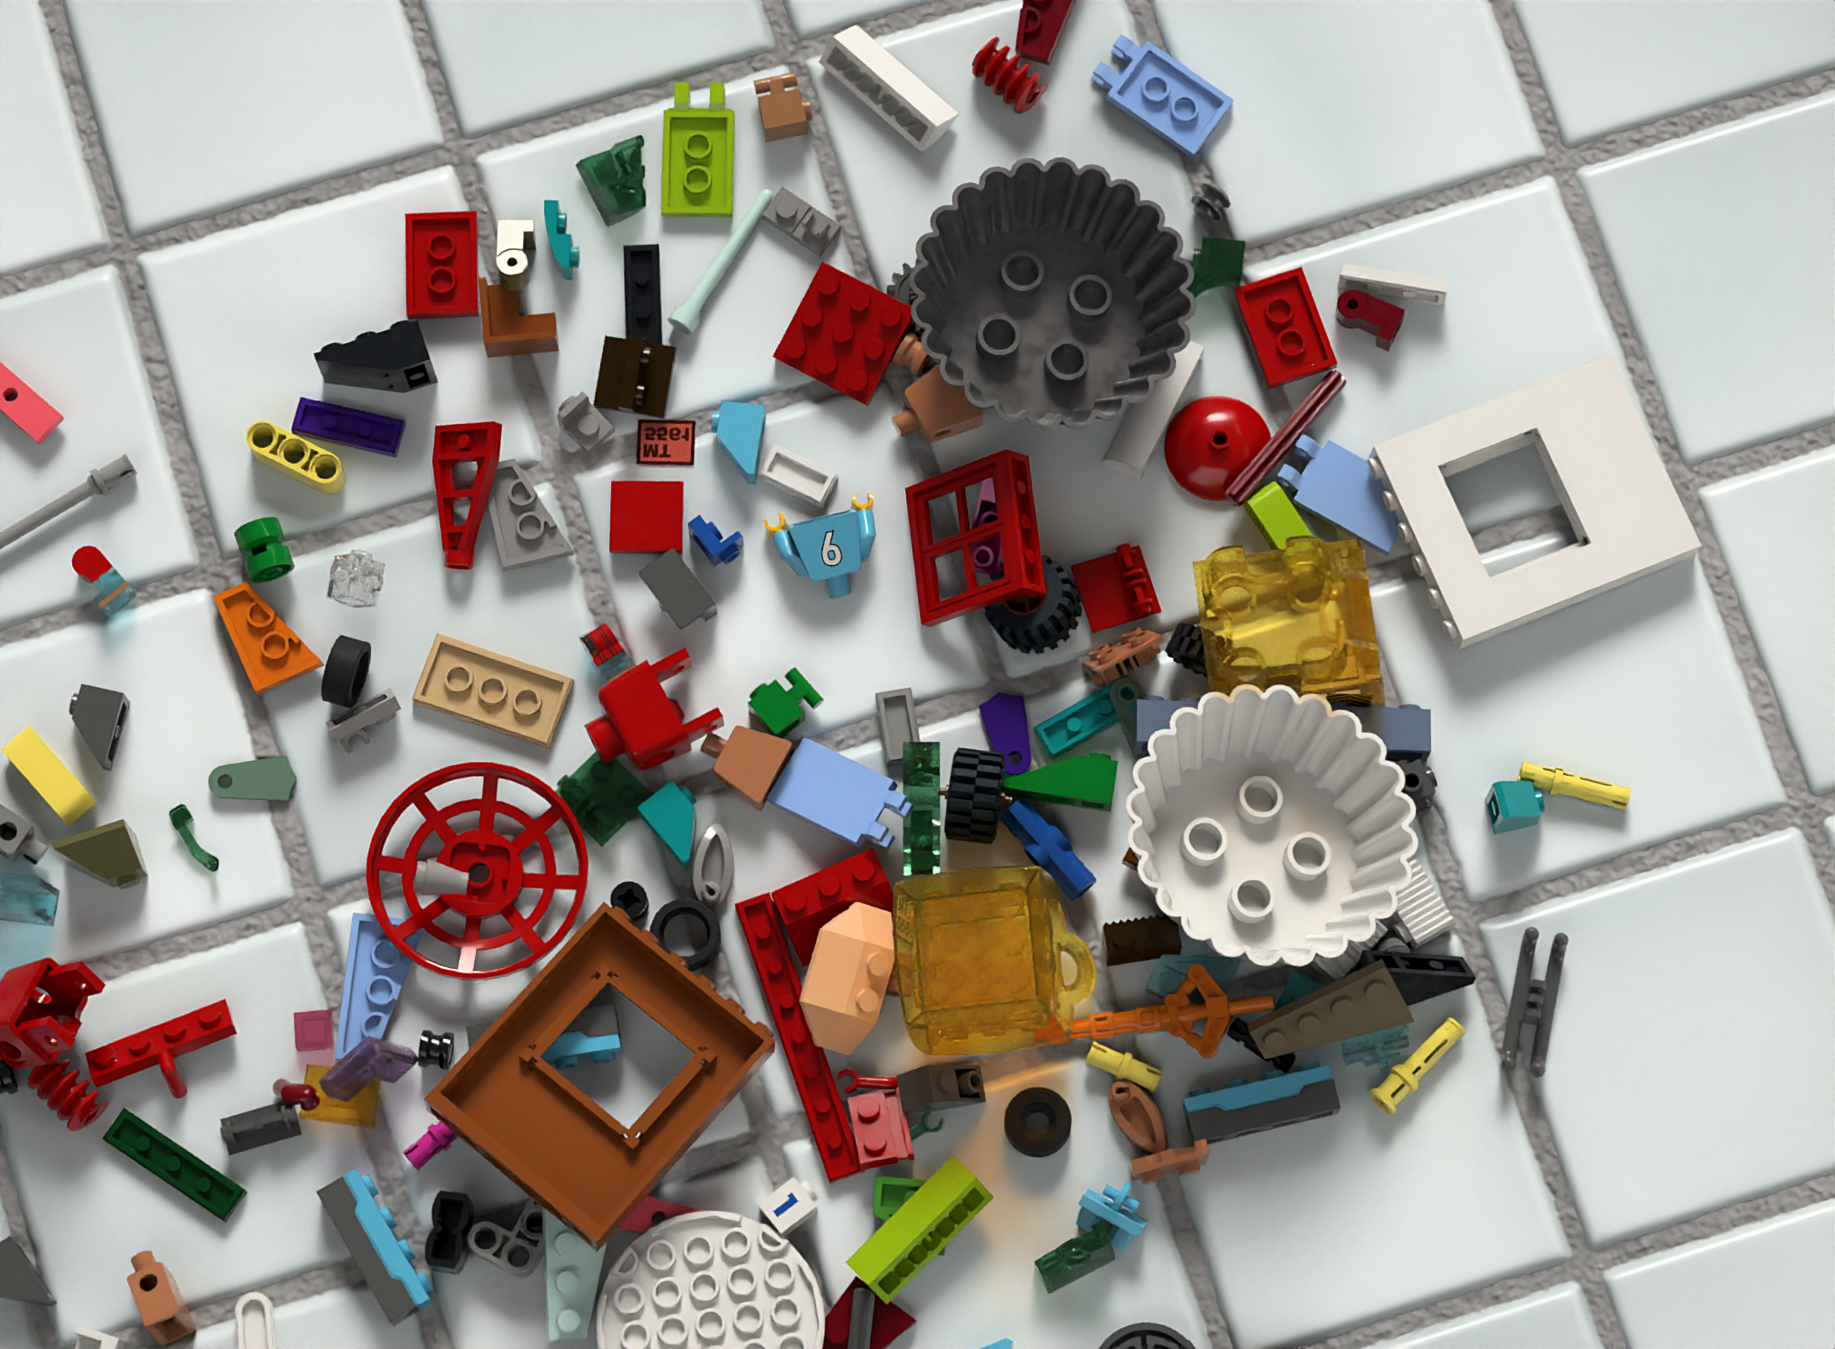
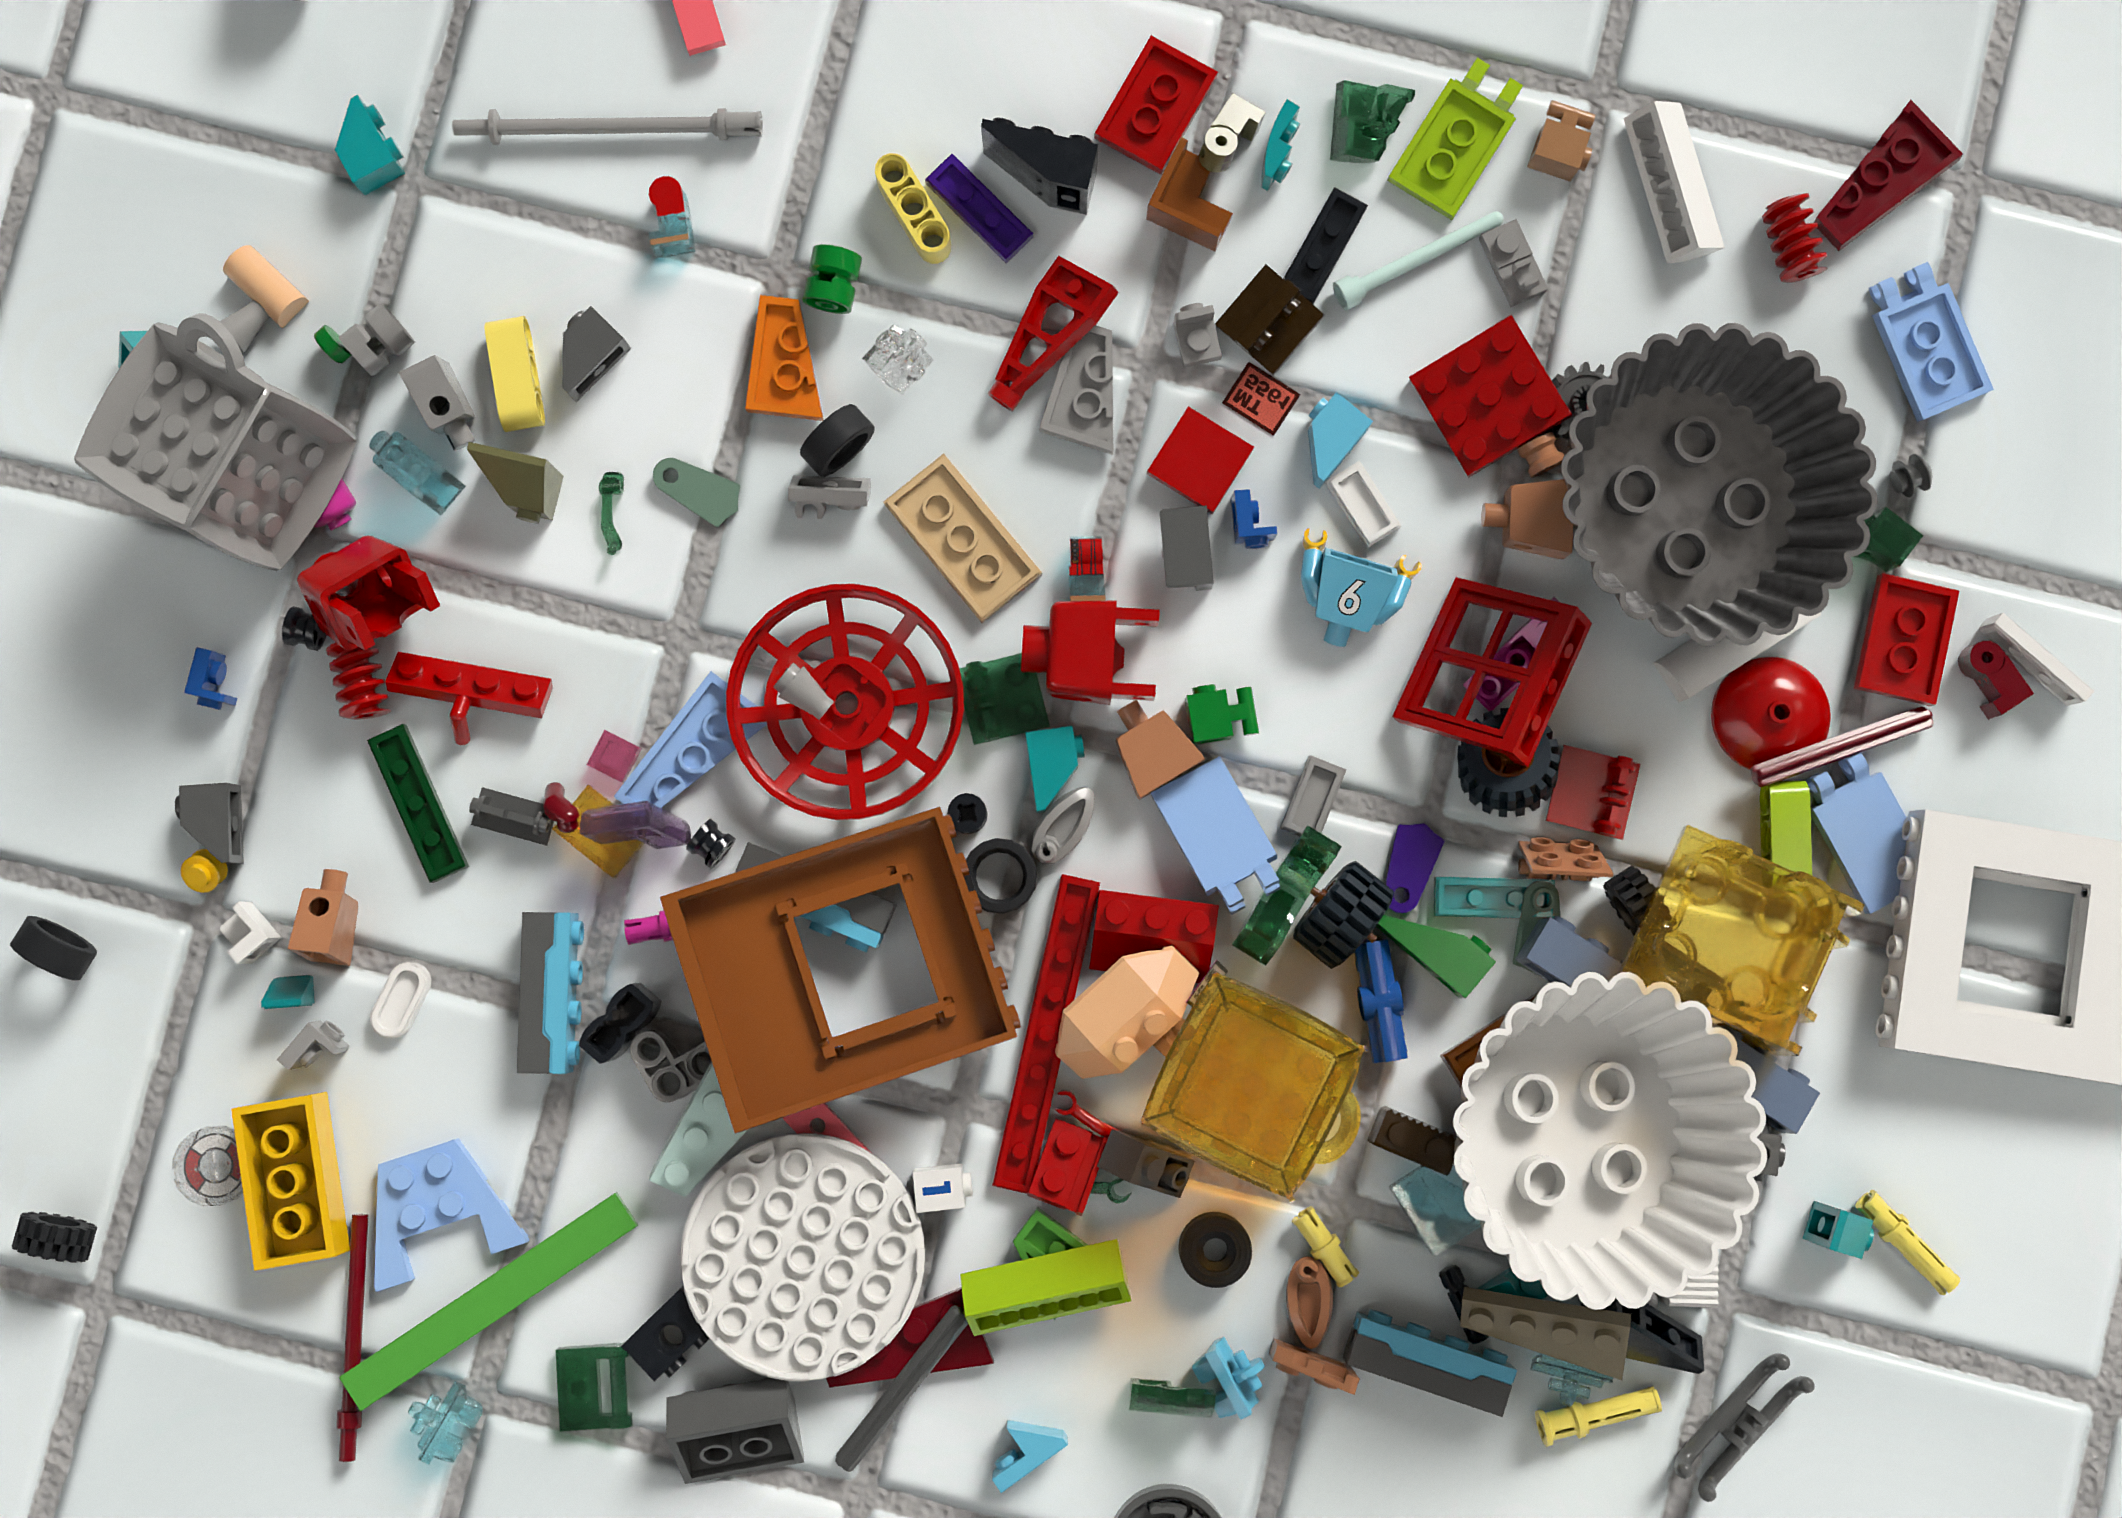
camera: 30 degrees right, 10 degrees up
(30, 1323) = (203, 871): none -> yellow wheel
(1177, 1015) = (1406, 1235): orange bar -> none

